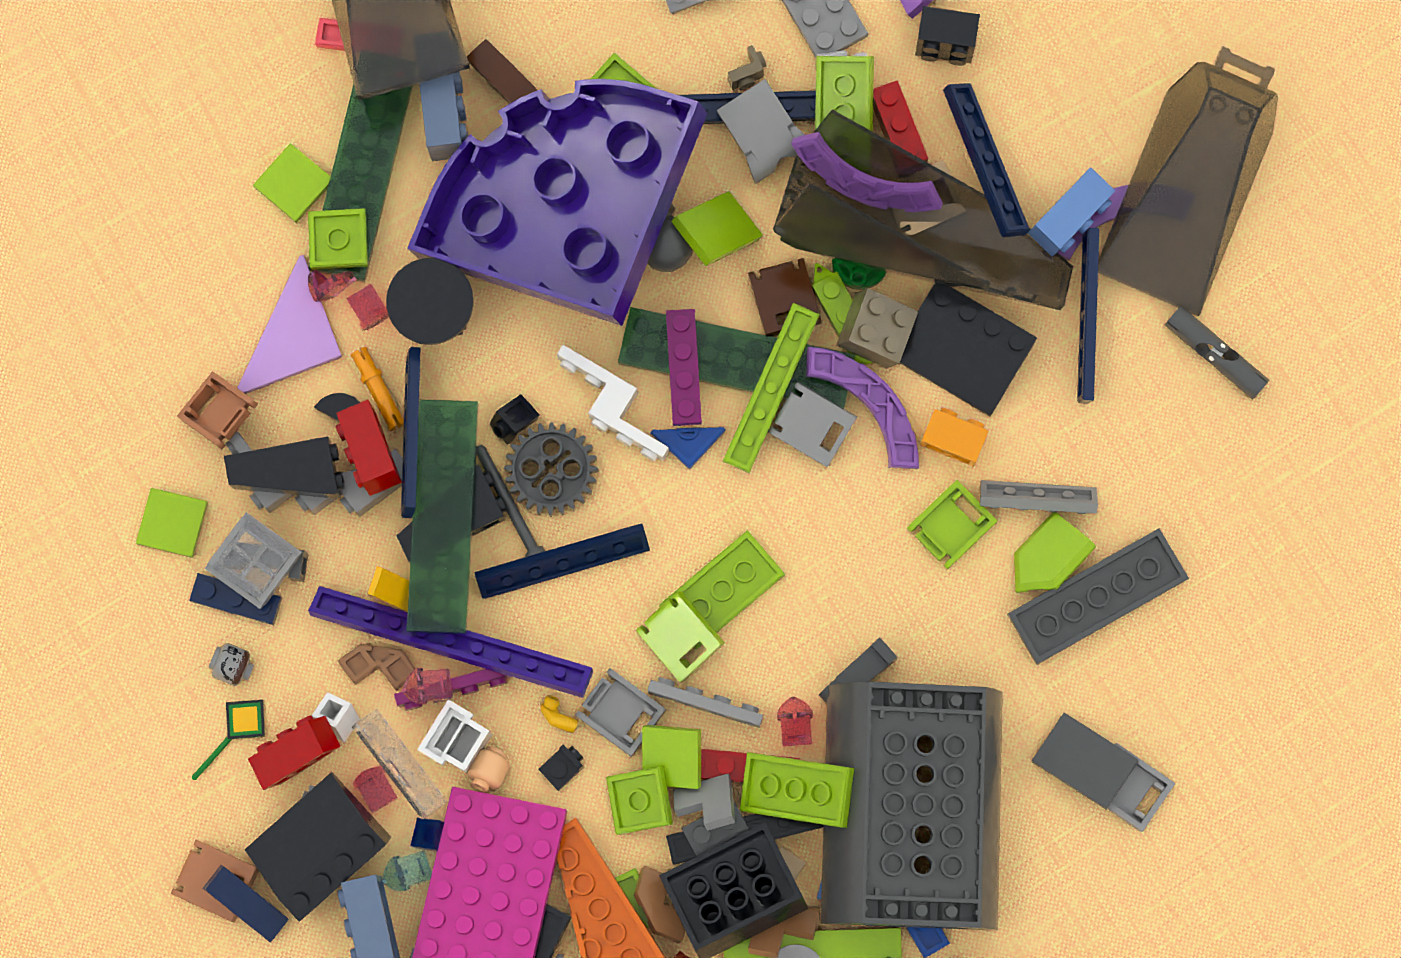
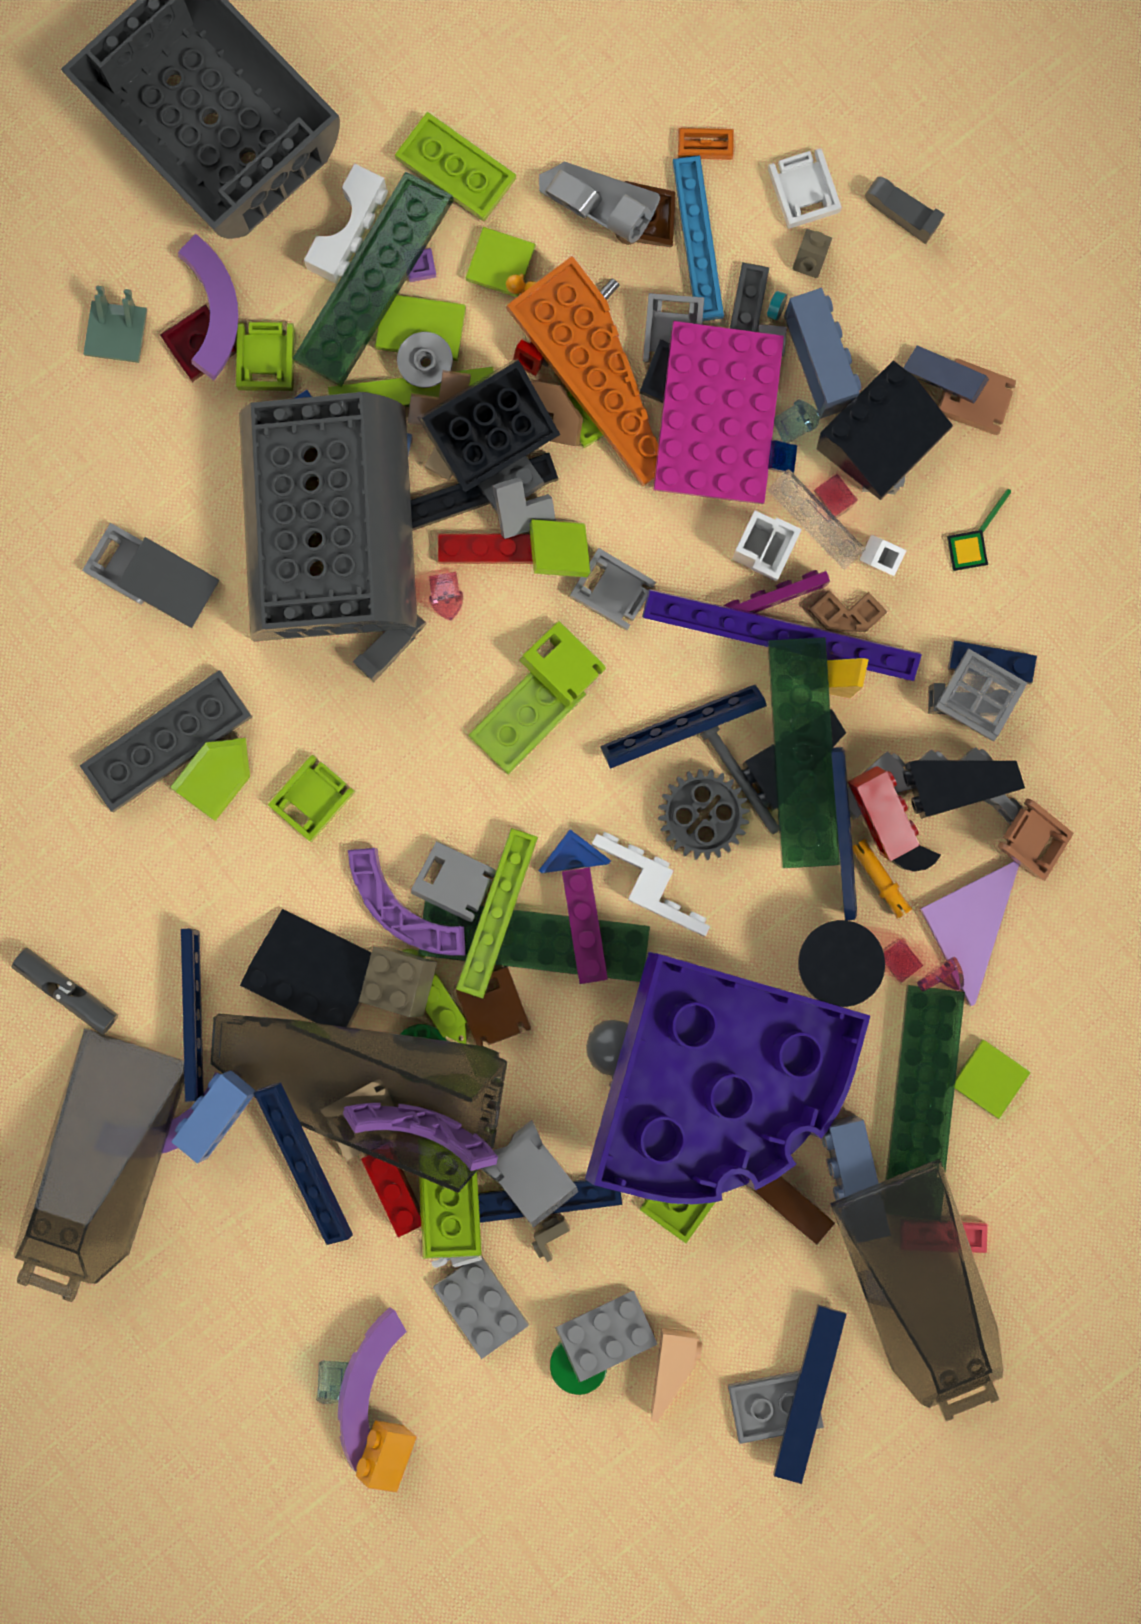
camera: 170 degrees right, 5 degrees up
(171, 522) = (1063, 730): lime tile -> none
(231, 664) = (988, 597): light grey head -> none
(293, 751) = (918, 516): red brick -> none
(338, 239) = (939, 1023): lime tile -> none
(428, 685) = (798, 587): clear pink tile -> none
(489, 769) = (731, 521): light nougat head -> none
(513, 419) = (745, 861): black bracket -> none
(554, 717) = (678, 582): yellow arm -> none
(562, 766) = (662, 533): black bracket -> none
(639, 800) = (586, 506): lime tile -> none
(717, 228) = (565, 1067): lime tile -> none
(718, 705) = (521, 602): light grey plate -> none
(797, 789) = (436, 521): lime tile -> none
(947, 35) = (351, 1289): black brick -> none
(954, 436) = (314, 882): light orange brick -> none
(1038, 497) = (229, 831): light grey plate -> none

